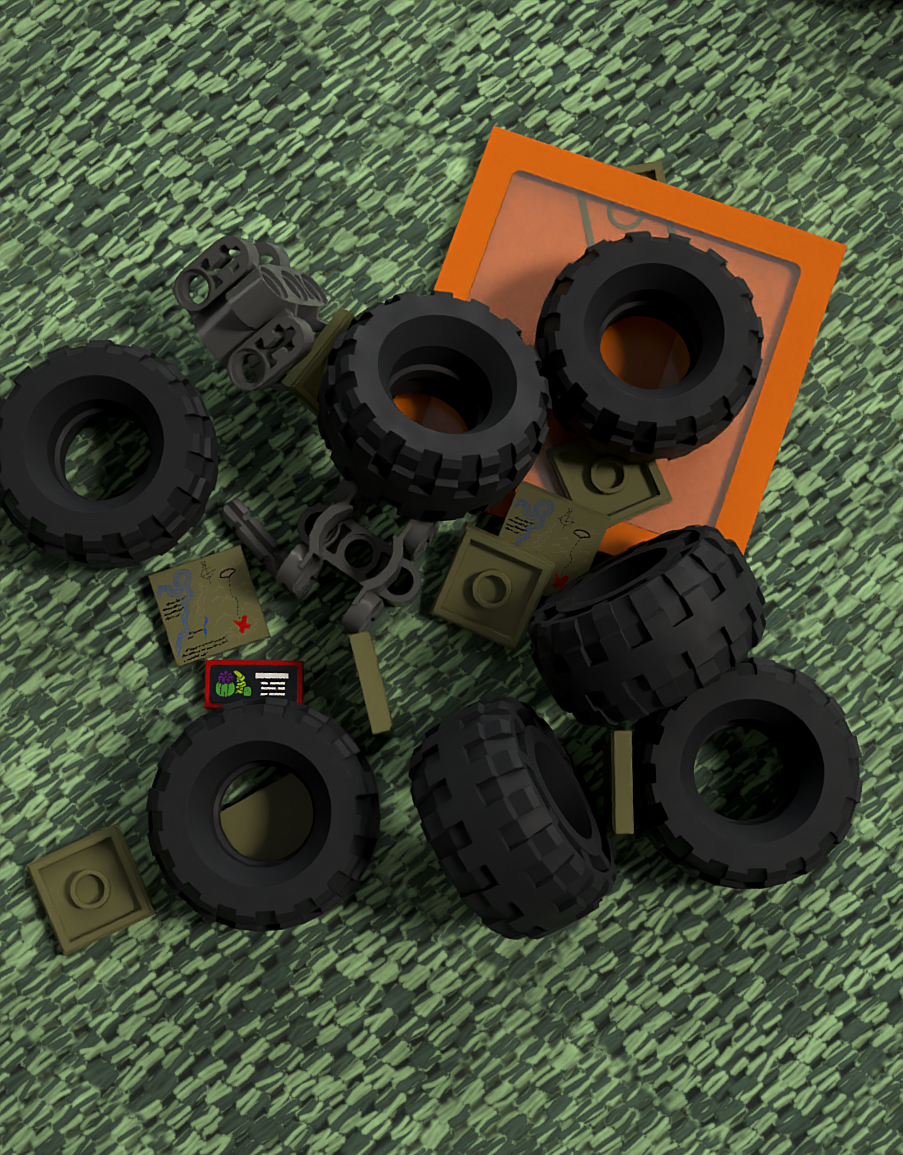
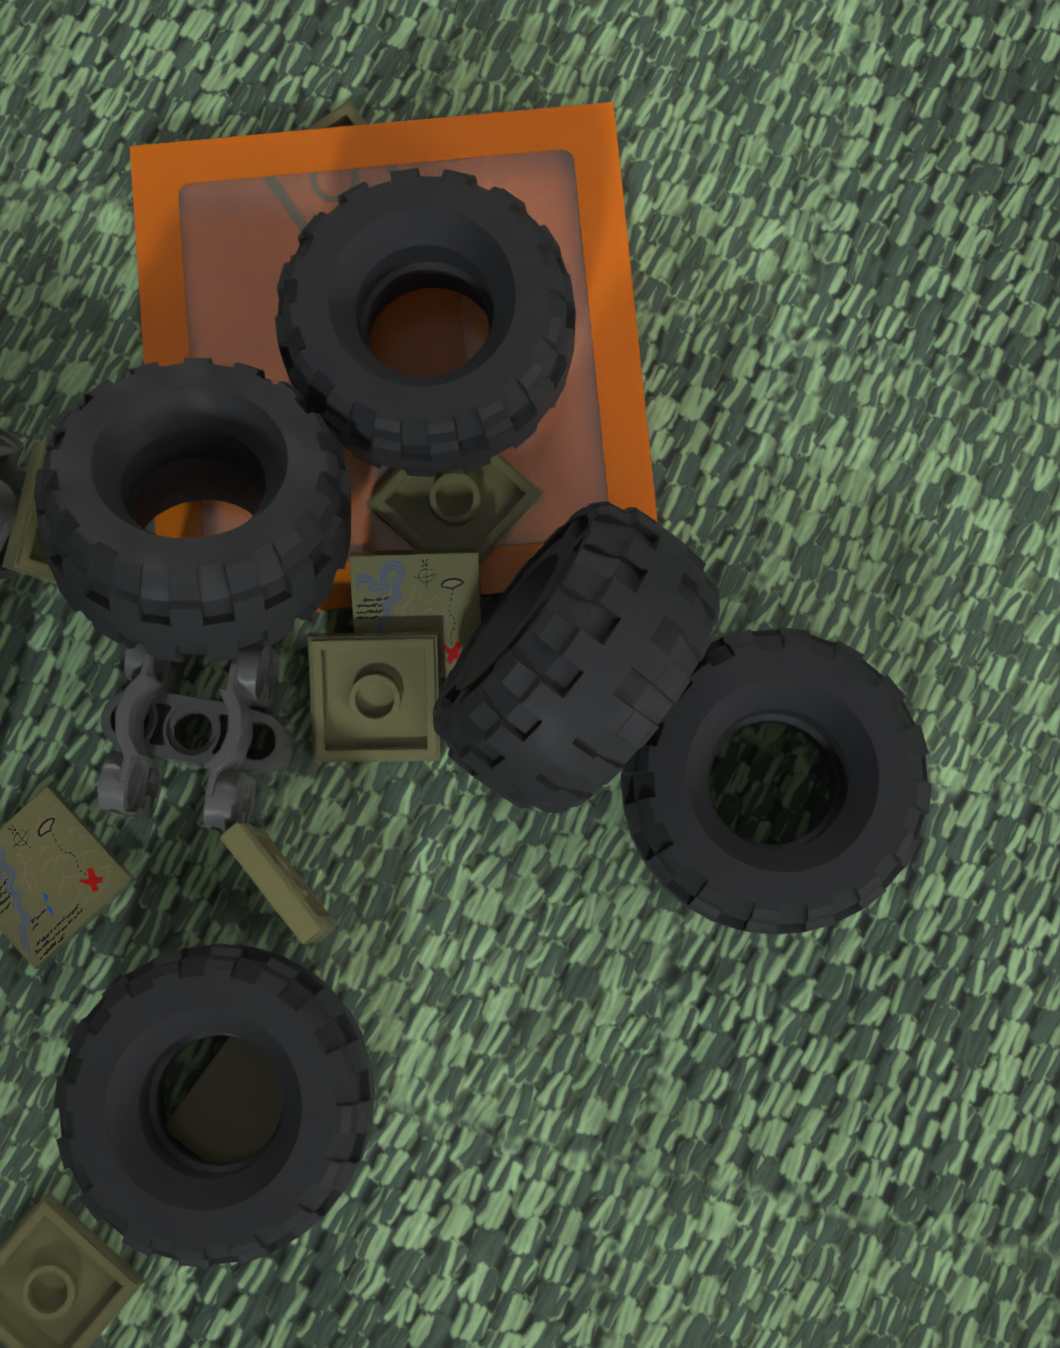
camera: 20 degrees left, 0 degrees up
(250, 679) = (136, 940): tile -> none
(254, 535) = (53, 764): dark grey axle -> none
(511, 819) = (516, 972): black tyre -> none
(618, 782) = (630, 863): olive tile -> none

